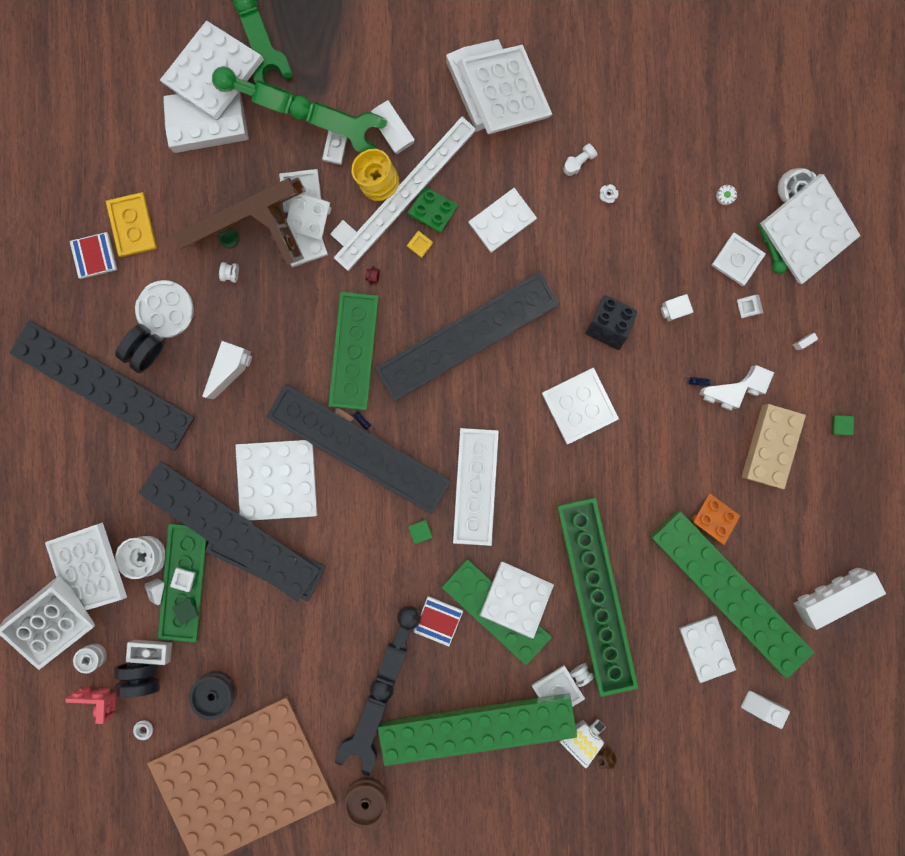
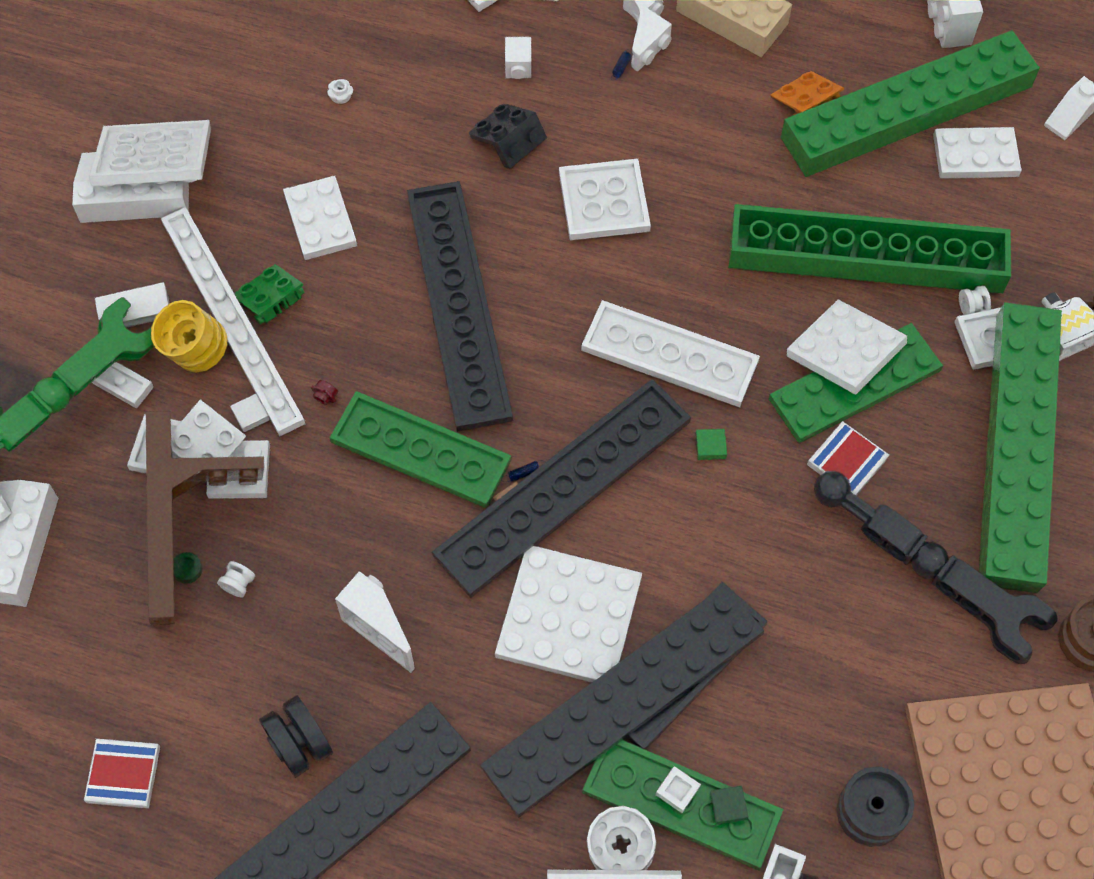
camera: 75 degrees left, 25 degrees down
(131, 224) = (102, 701): yellow tile -> none
(154, 590) = (682, 848): white slope -> none
(165, 308) = (245, 690): white tile -> none
(420, 244) = (307, 323): yellow tile -> none
(573, 164) = (284, 115): white leg -> none

